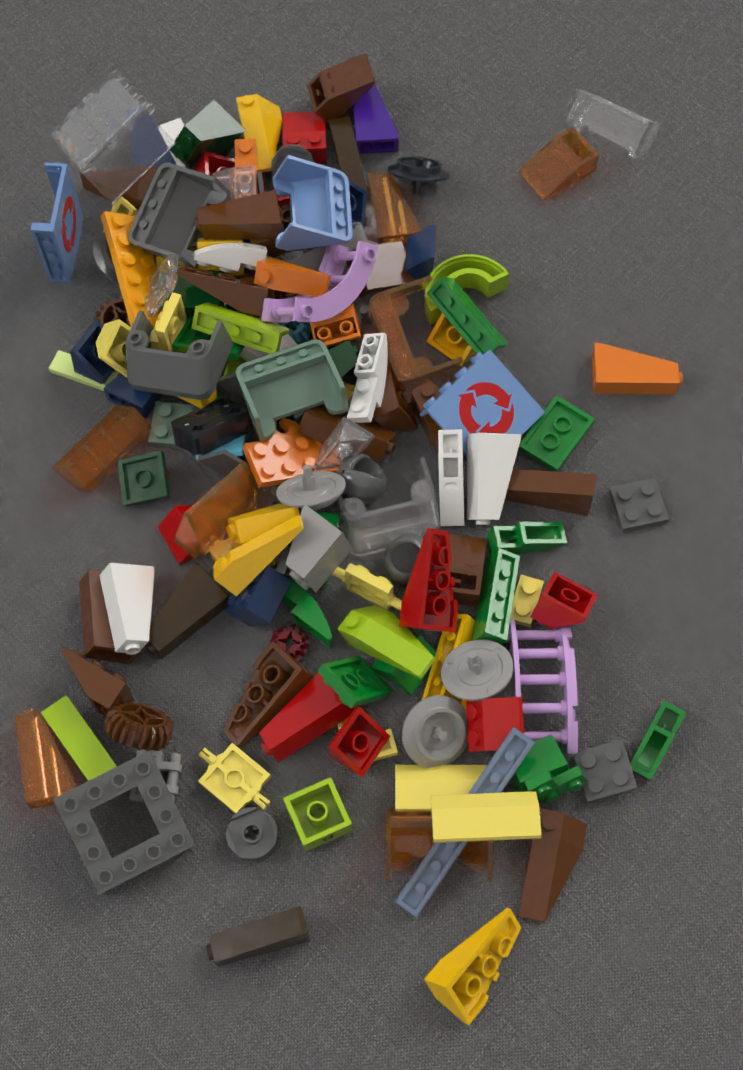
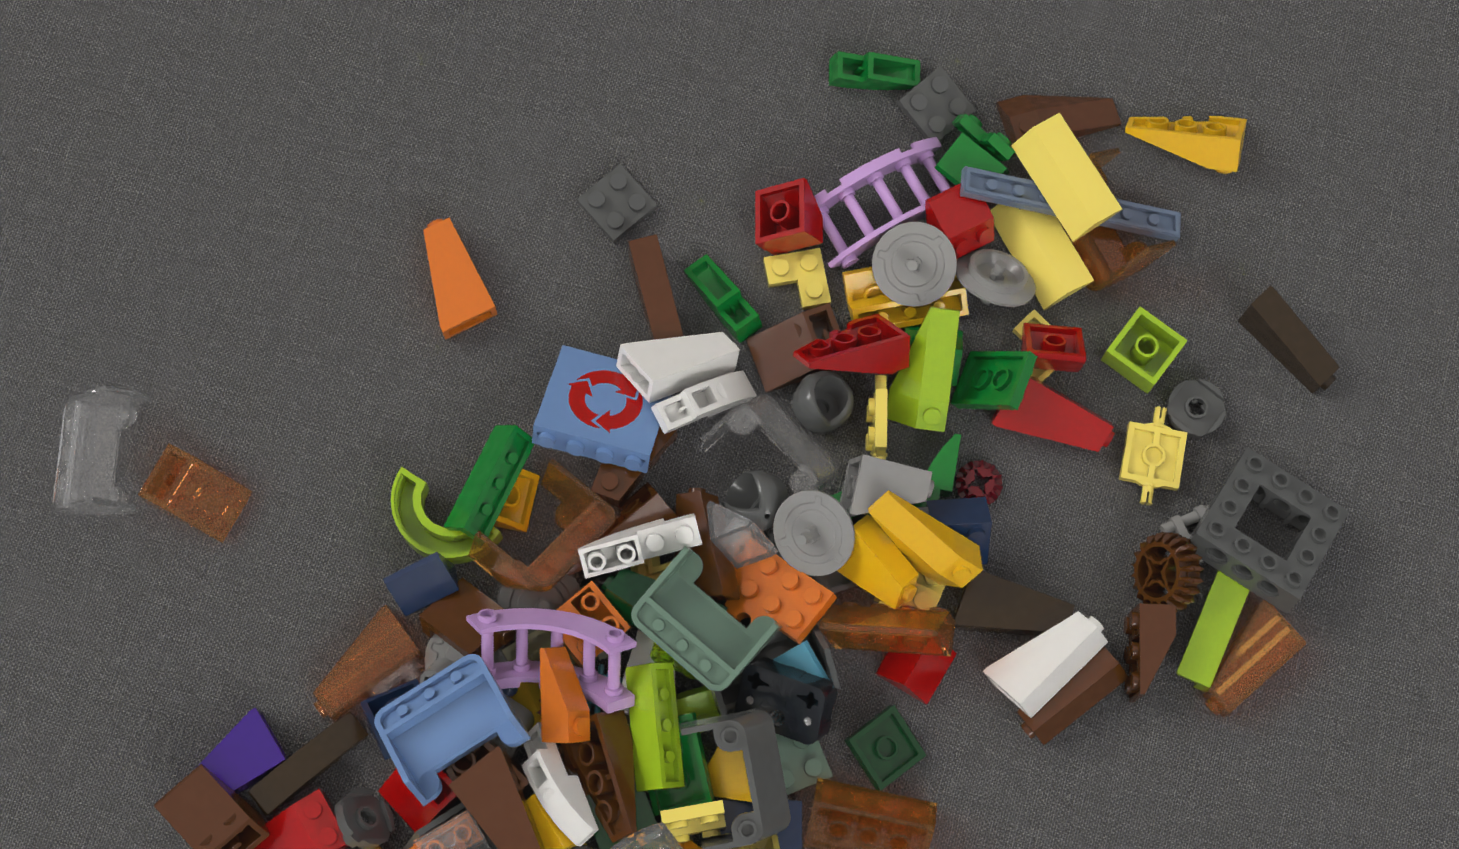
camera: 125 degrees left, 10 degrees up
(271, 688) = (1041, 471): reddish brown wedge -> none
(418, 171) = (295, 656): black piece -> none
(496, 596) = (833, 284): green panel -> none
(556, 434) = (576, 323): green plate -> none

